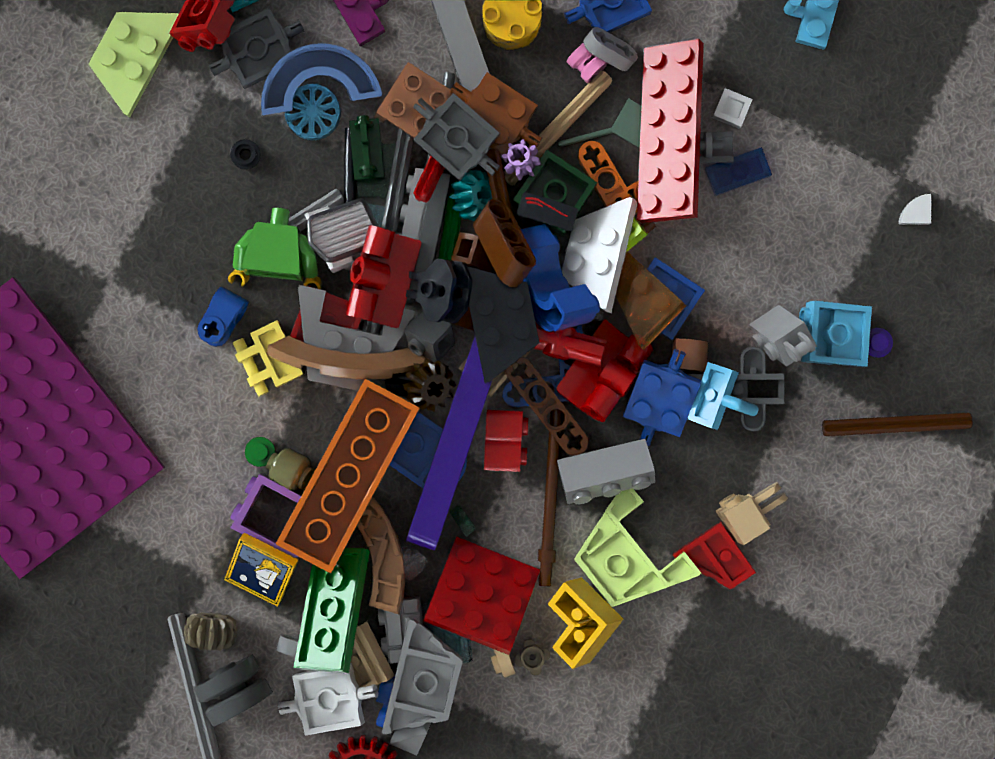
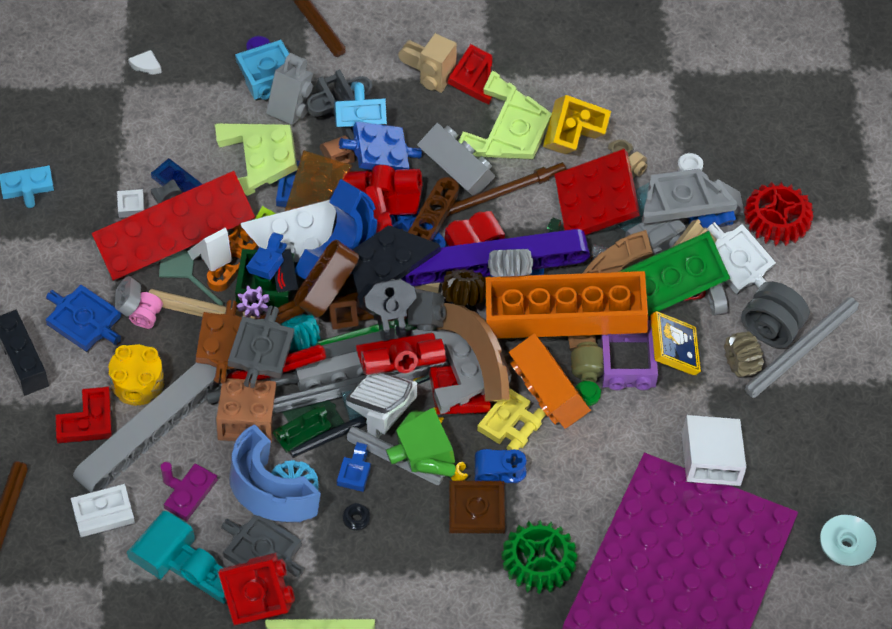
camera: 120 degrees left, 30 degrees down
(94, 280) = (526, 542): none -> green gear
(120, 534) = (713, 450): none -> white brick
(194, 274) = (476, 507): none -> reddish brown tile
(276, 412) = (548, 382): none -> orange brick
(293, 176) = (355, 471): none -> blue plate
(420, 441) = (510, 262): none -> light grey gear
(477, 722) = (689, 161): none -> white tile
(563, 196) = (267, 261): none -> blue plate
(619, 156) = (213, 250): none -> white slope
(720, 277) = (267, 151): none -> yellowish green wing

